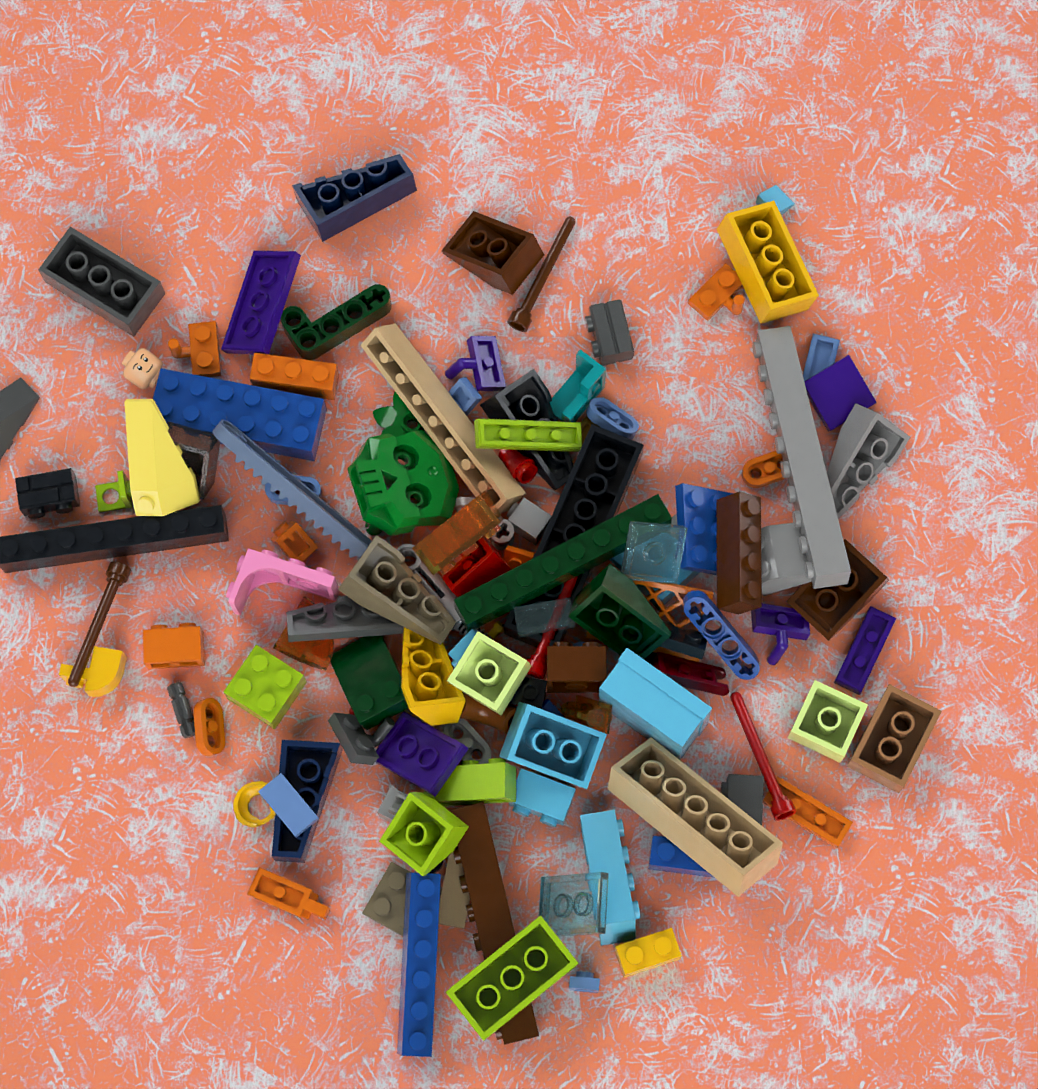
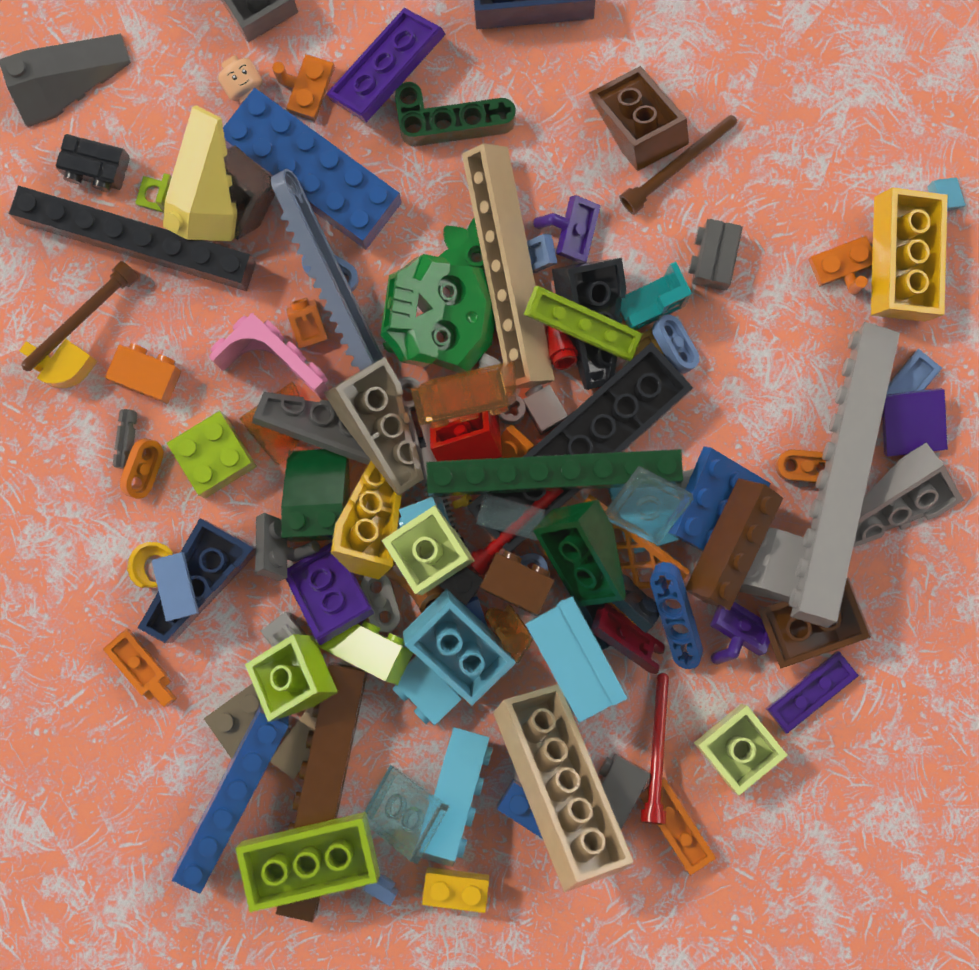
camera: 25 degrees right, 10 degrees up
(295, 375) = (383, 155): orange brick -> none
(894, 738) = (797, 797): medium nougat brick -> none

